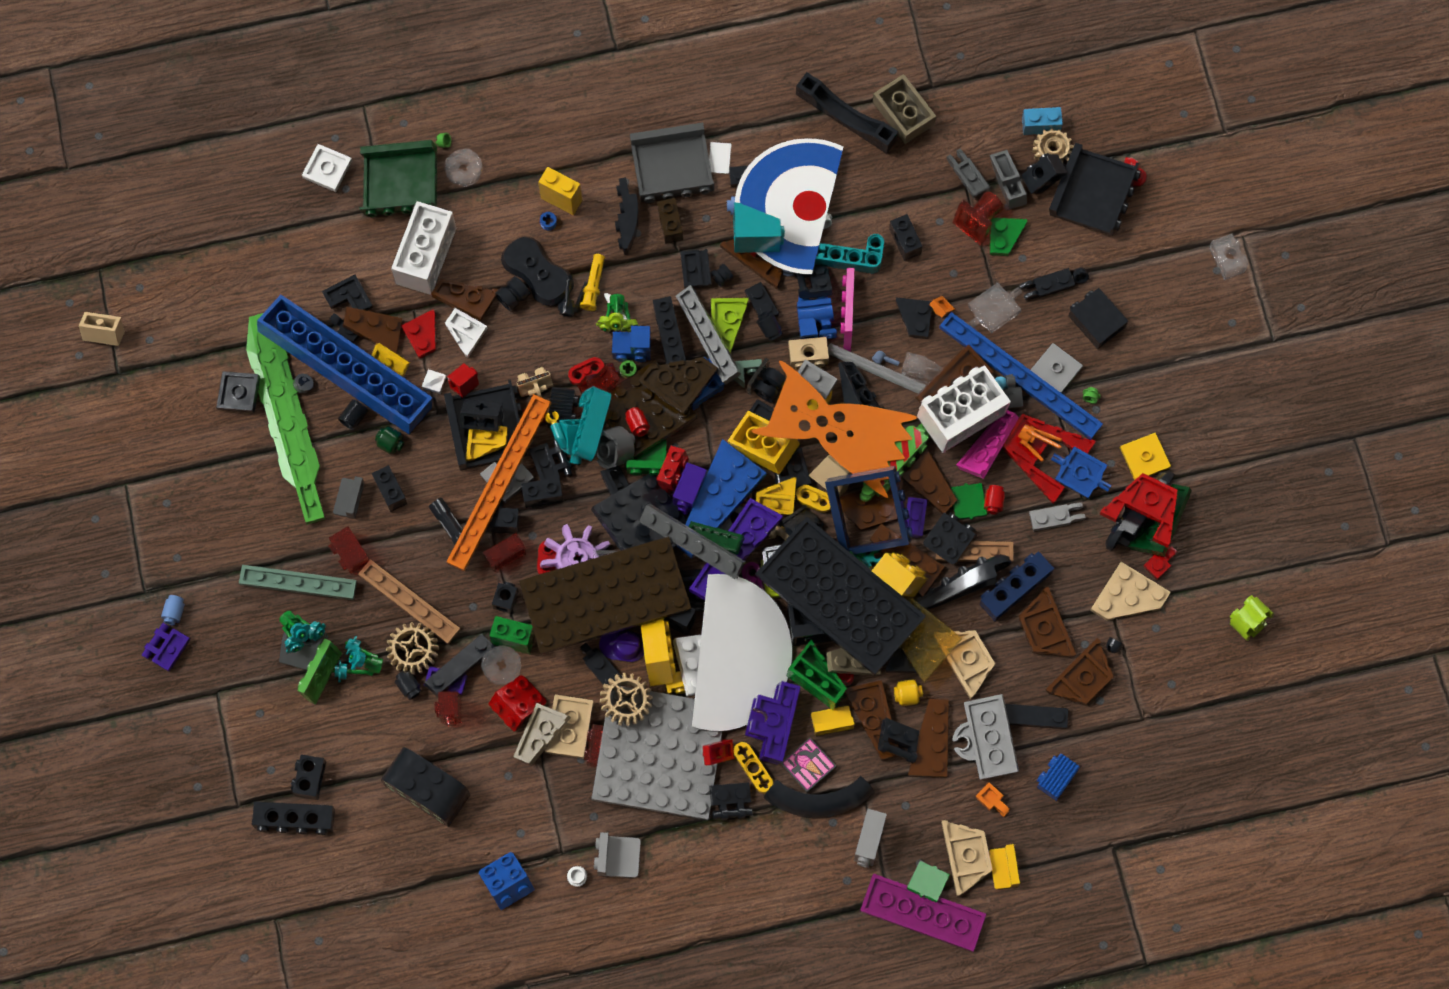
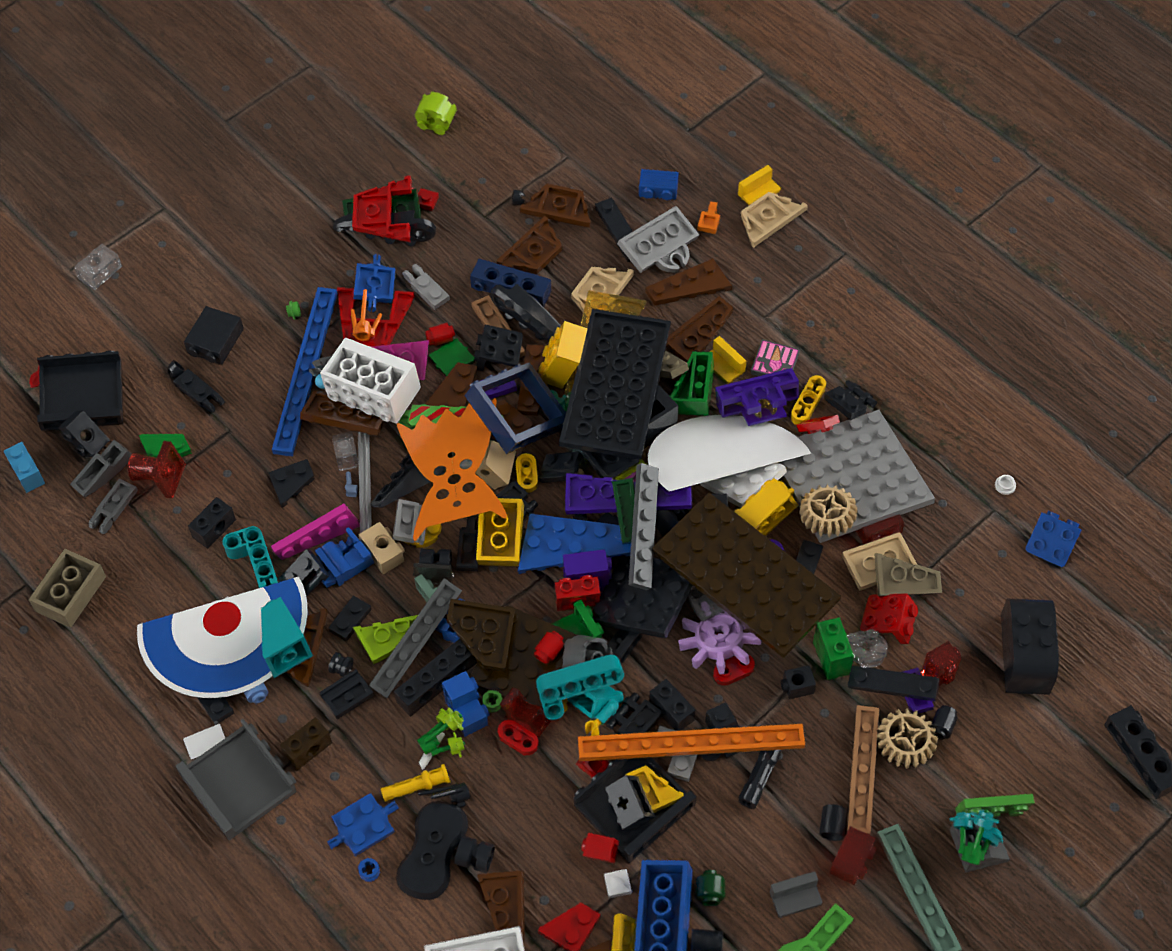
camera: 120 degrees left, 15 degrees down
(314, 777) = (1094, 755): black brick -> none
(357, 659) = (959, 772): plant -> none
(382, 553) = (833, 822): none -> black piece
(389, 488) = (762, 855): black brick -> none
(465, 330) = (543, 882): white wing -> none
(505, 552) = (754, 705): clear red brick -> none
(534, 384) = (551, 773): tan hips -> none
(560, 191) = (331, 864): yellow brick -> none
(563, 403) = (564, 737): black brick -> none
(584, 233) = (362, 824): none -> blue plate
(617, 856) = (965, 461): light grey bracket -> none
(628, 219) = (328, 784): black slope -> none
(769, 325) = (373, 593): black brick -> none
(779, 496) = (545, 499): yellow wing -> none
(819, 805) = (802, 332): black brick -> none
(868, 128) = (90, 668): black arch -> none
(869, 838) = (811, 288): light grey window -> none
(900, 735) = (703, 303): black plate -> none
(907, 692) = (661, 312): yellow head -> none
(928, 881) = (811, 230): piece -> none
(939, 920) = (839, 224): magenta plate -> none
(941, 306) = (270, 460): orange plate -> none
(994, 307) = (246, 421): clear plate -> none
(1053, 139) = (42, 452): tan gear -> none
(1057, 367) = (280, 348): light grey plate -> none
(1129, 595) = (465, 208): tan plate -> none
(1145, 456) = (330, 249): yellow plate -> none

